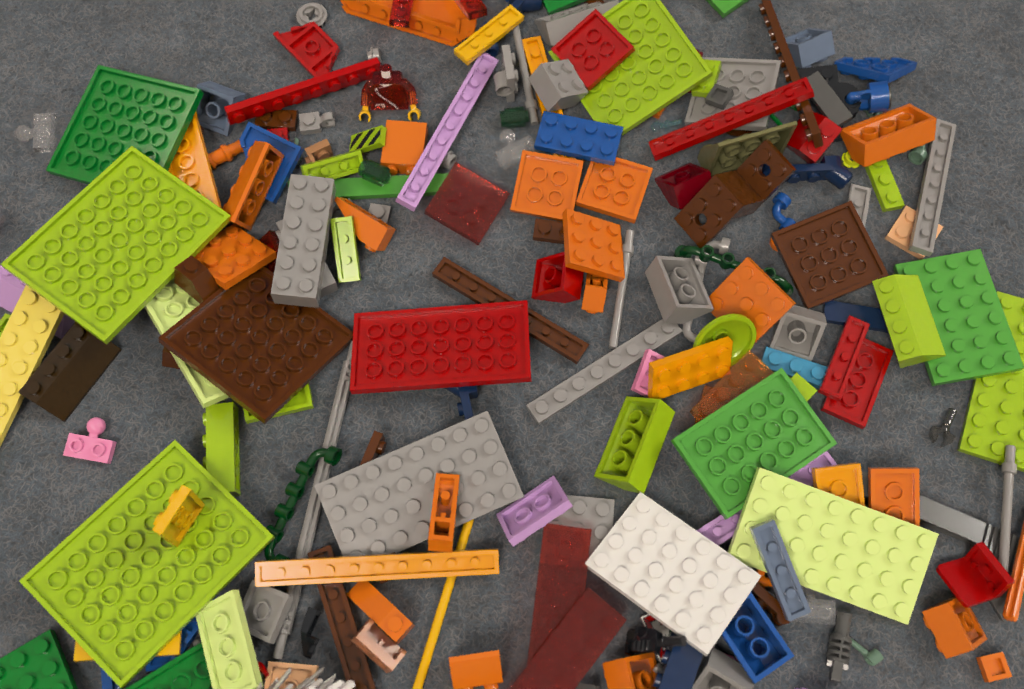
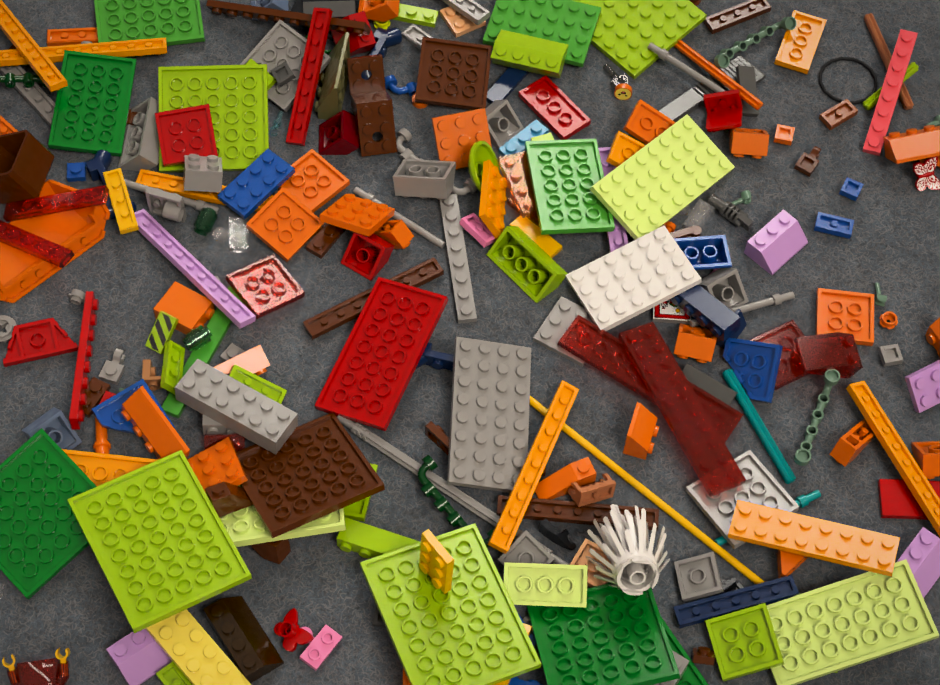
camera: 65 degrees left, 10 degrees down
(91, 409) = (291, 632): none -> red animal
(388, 92) = (125, 297): clear red torso -> none
(443, 513) = (519, 399): orange slope -> none
(533, 510) = (546, 344): lavender plate -> none
(650, 640) = (672, 315): black piece -> none
(682, 420) = (545, 242): none -> yellow tile
(688, 251) = (408, 144): dark green bar -> none
(780, 570) = (665, 212): sand blue plate -> none
(843, 358) = (535, 105): red tile -> none
(928, 445) = (623, 91): none -> tile

